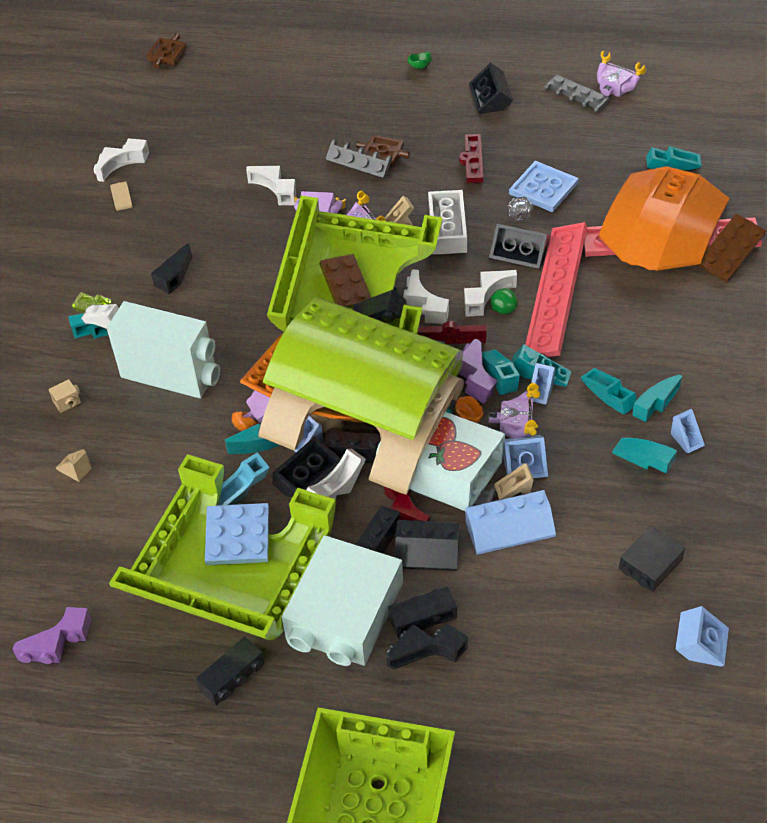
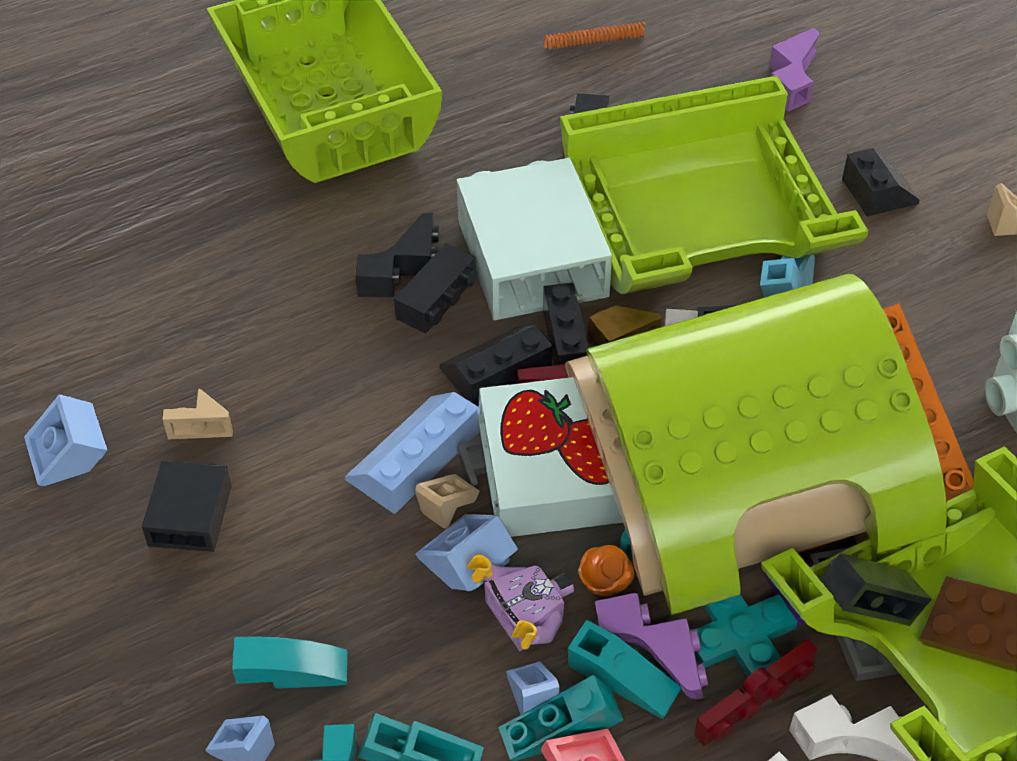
camera: 140 degrees right, 0 degrees up
(113, 526) = (877, 182): none -> black slope
(171, 776) = (622, 33): none -> orange piece
(237, 534) = (724, 230): light blue plate -> none
(348, 523) = (620, 323): none -> pearl gold slope
(615, 604) = (204, 421): none -> tan slope

